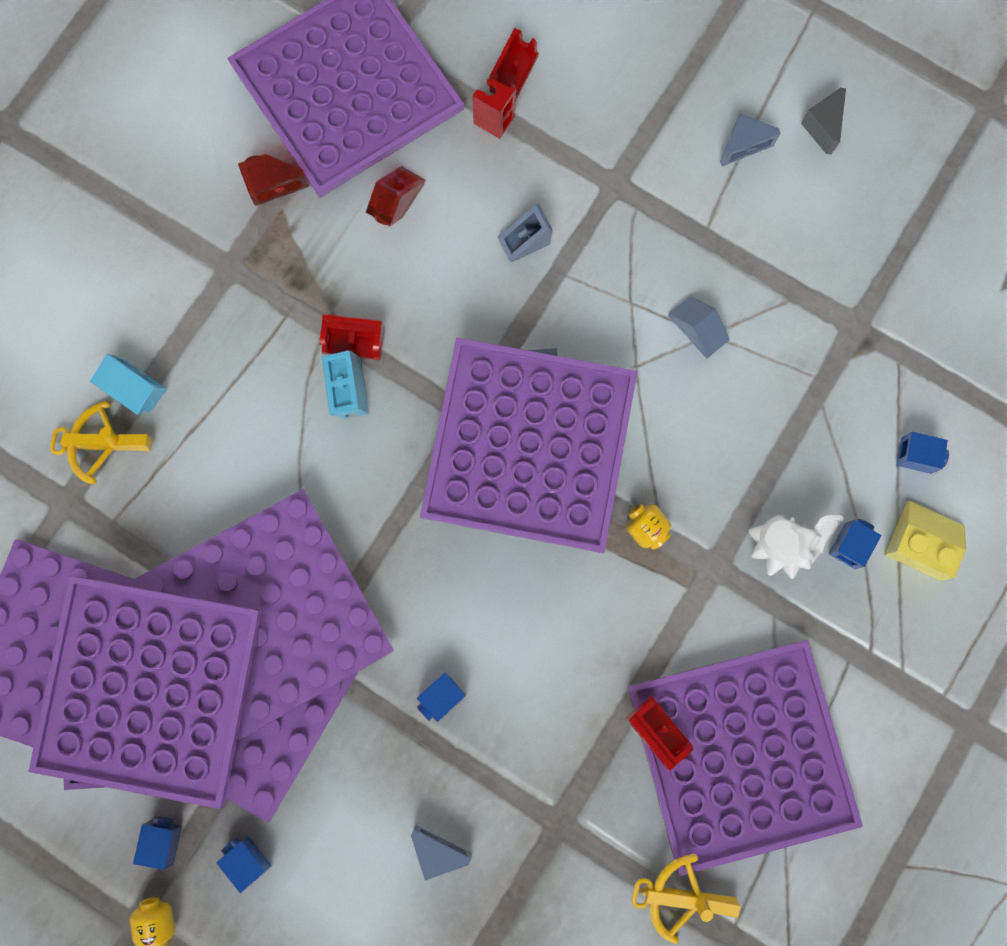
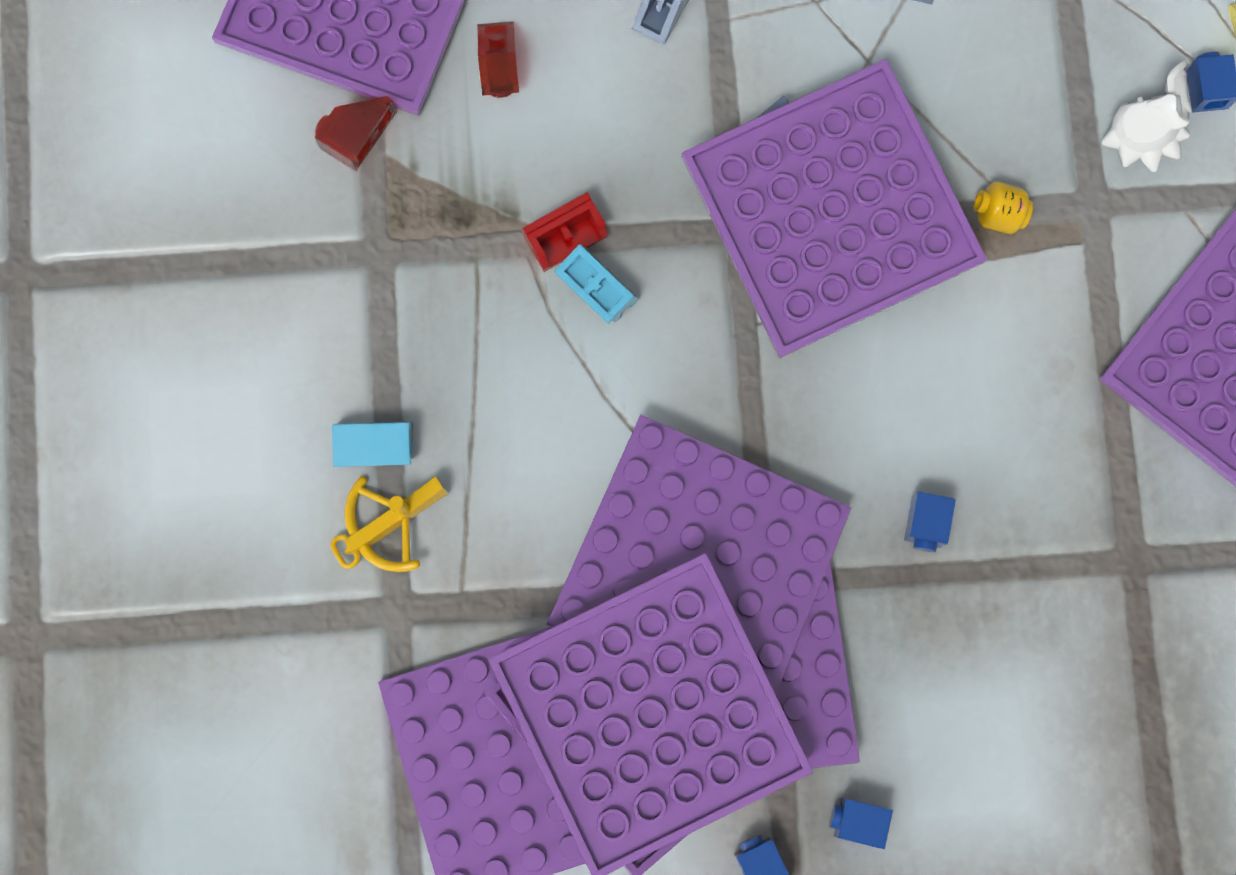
camera: 35 degrees left, 0 degrees up
(437, 854) = (1042, 675): sand blue slope -> none
(659, 733) = (1167, 398): red hinge -> none

